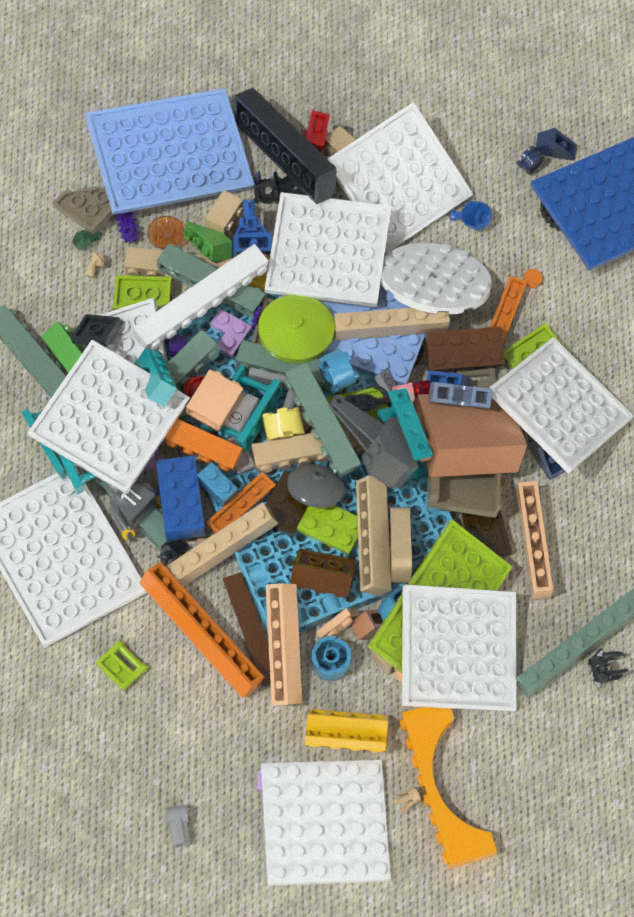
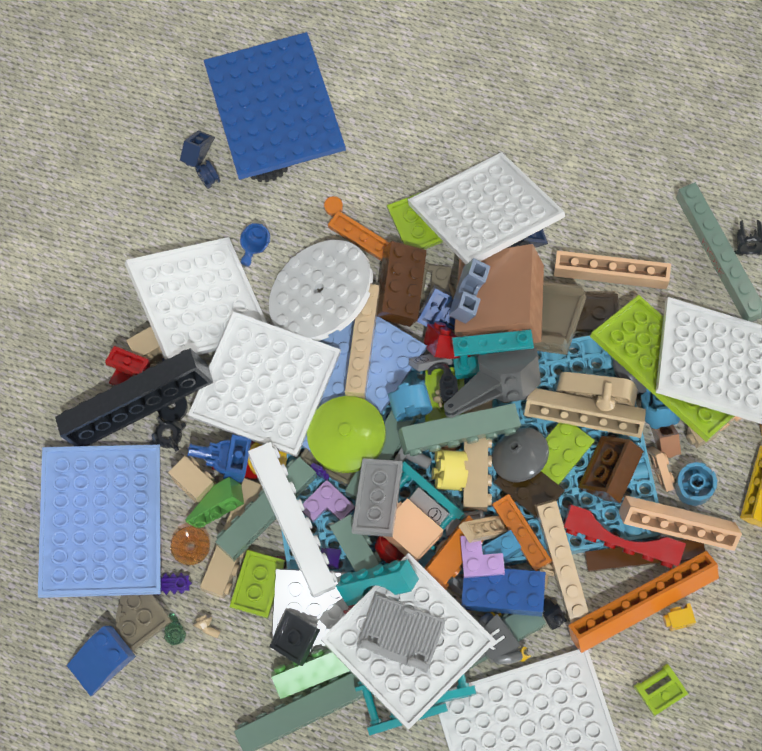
camera: 70 degrees left, 5 degrees up
(47, 185) = (100, 659): none -> blue slope
(113, 406) = (401, 632): none -> light grey window
(195, 669) = (679, 618): none -> yellow brick
(197, 461) = (477, 564): none -> lavender plate
(229, 458) = (483, 529): none -> tan tile
(236, 360) = (377, 497): none -> light grey plate
(262, 555) = (664, 549): none -> red arch
(384, 545) = (606, 402): none -> tan plate

